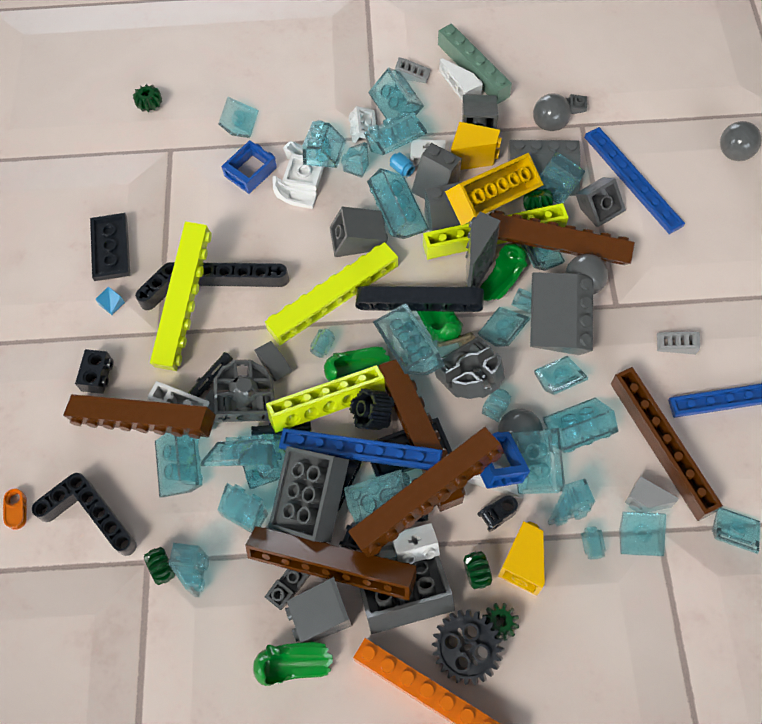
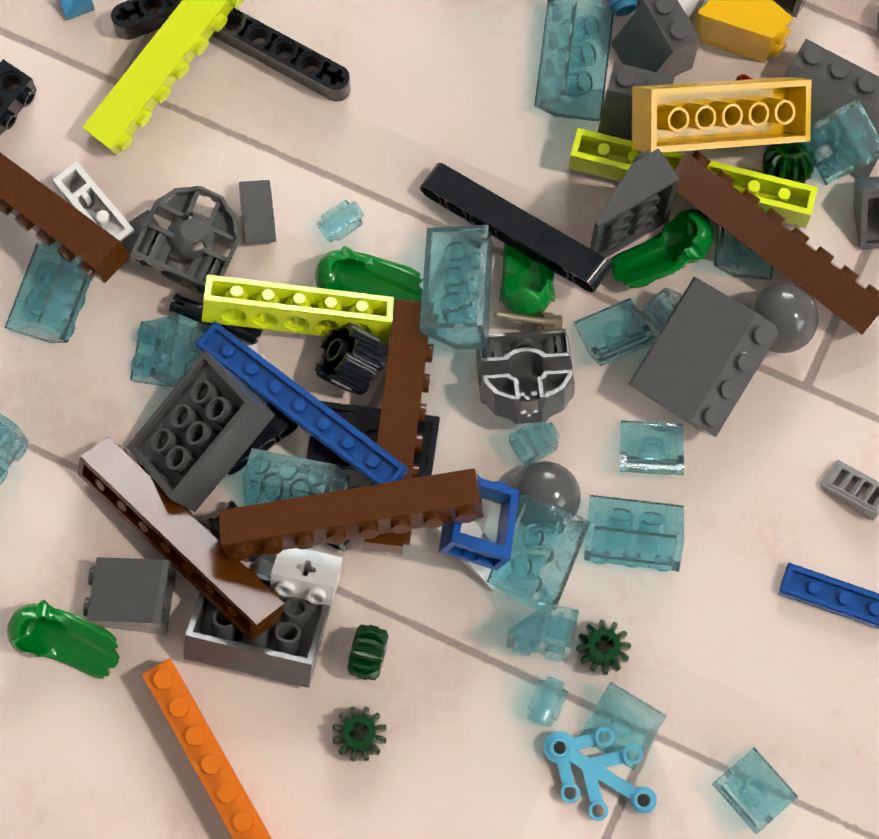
camera: 25 degrees right, 10 degrees up
(223, 360) = (190, 173): black pin -> none
(240, 452) = (135, 326): clear light blue slope -> none
(241, 508) = (104, 408): clear light blue slope -> none
(286, 587) = (107, 540): dark grey slope -> none
(331, 293) = (397, 150): neon yellow brick -> none
(357, 231) = (488, 72): dark grey slope -> none
(485, 638) = (271, 740): black gear -> none
(495, 515) = (442, 592): black piece -> none
(526, 559) = (437, 670): yellow slope -> none
(610, 502) = (614, 653): none -> dark green gear
(643, 567) = (594, 769): none -> medium azure plant
(649, 497) = (662, 683): light grey slope -> none
(666, 444) = (732, 621): reddish brown brick -> none

